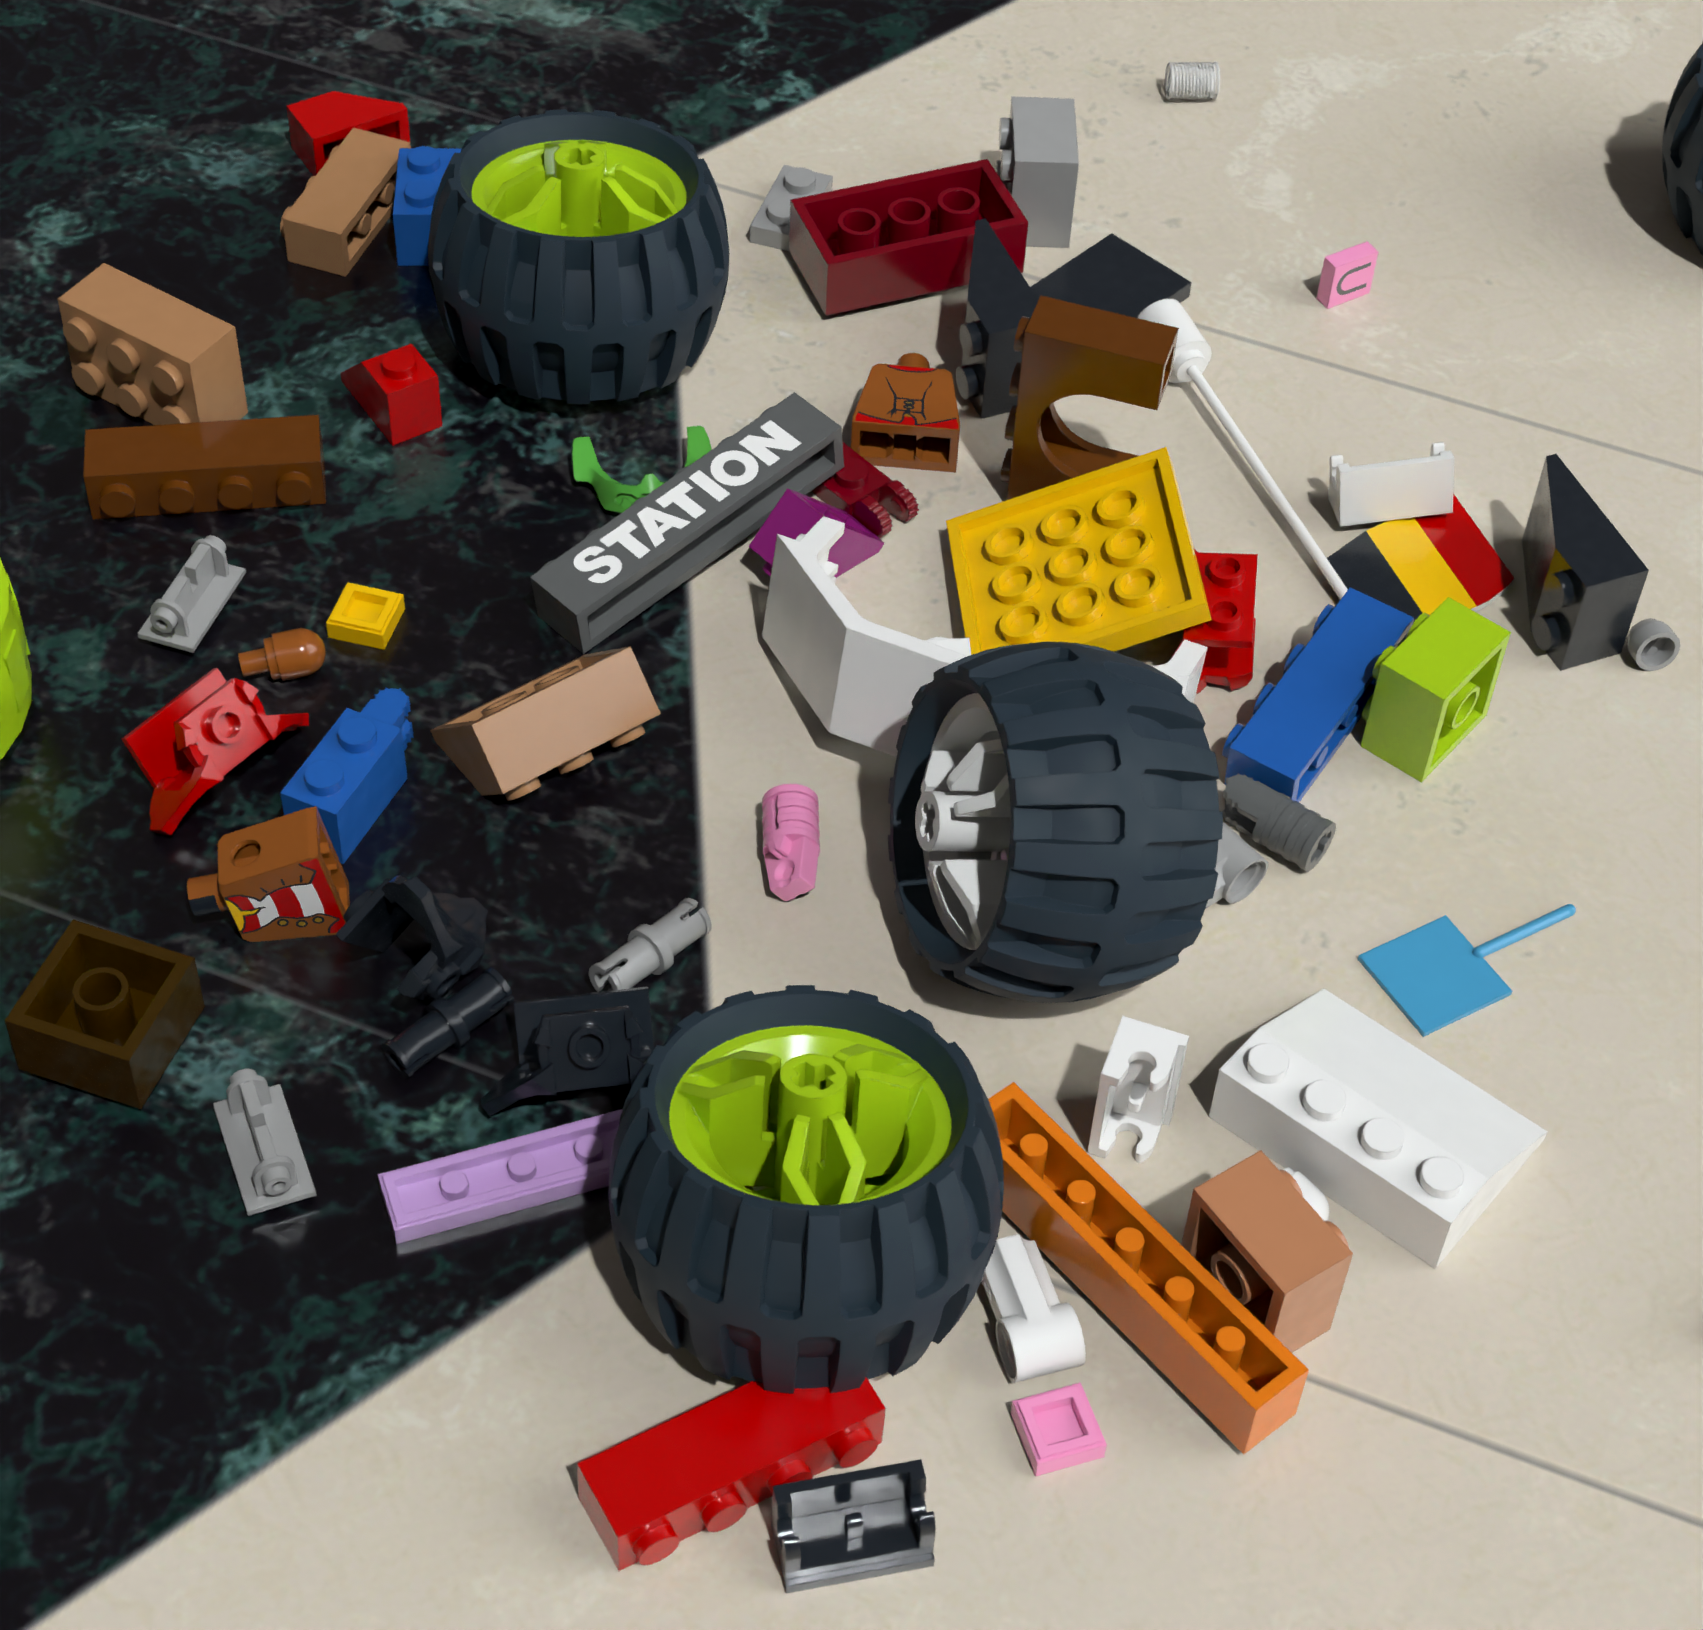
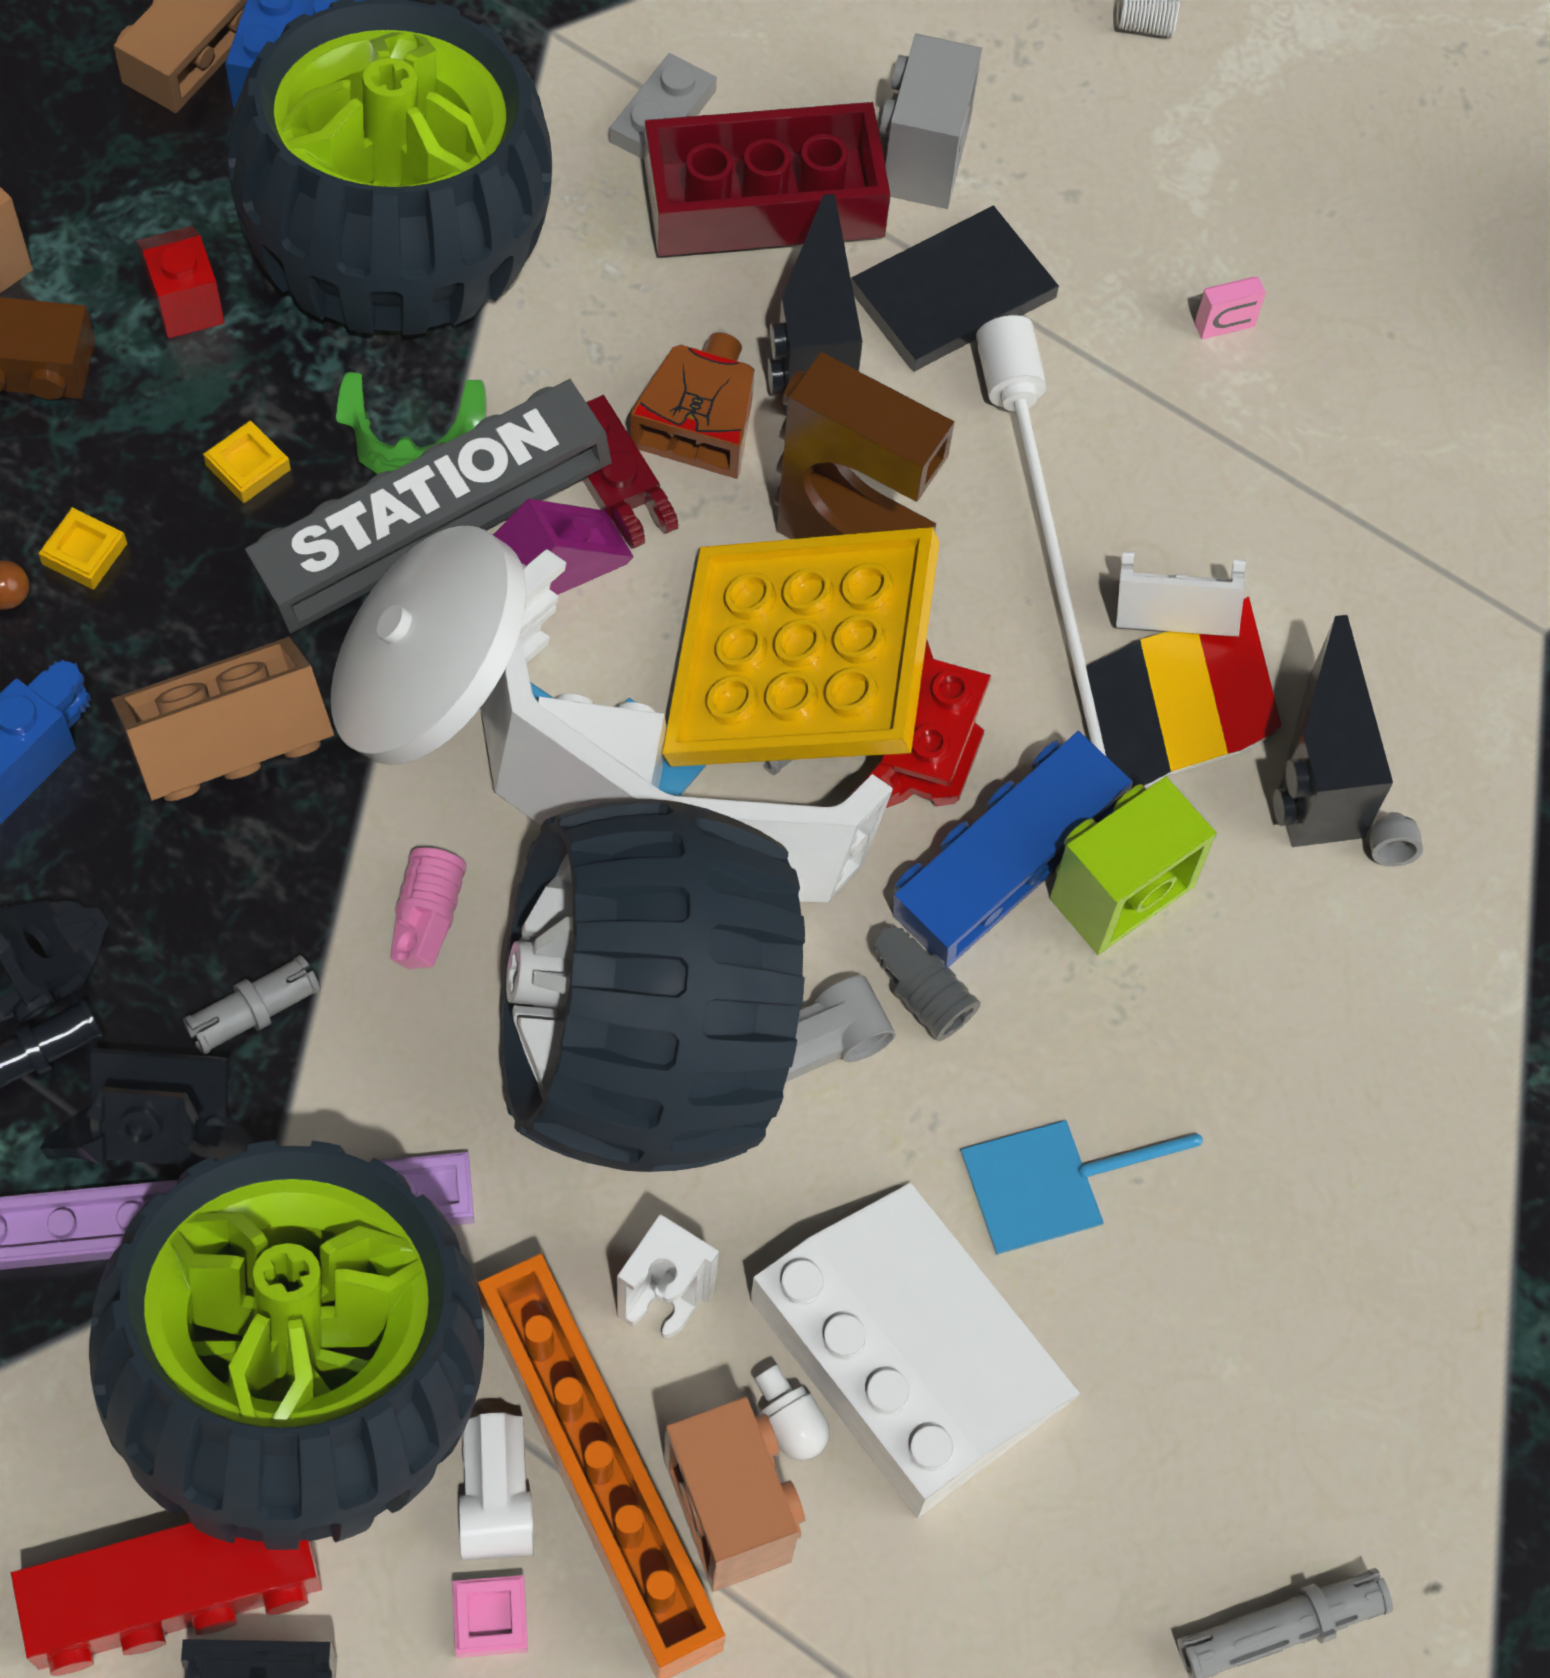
camera: 10 degrees right, 15 degrees up
(500, 525) = (247, 461): none -> yellow tile
(735, 613) = (428, 645): none -> white dish

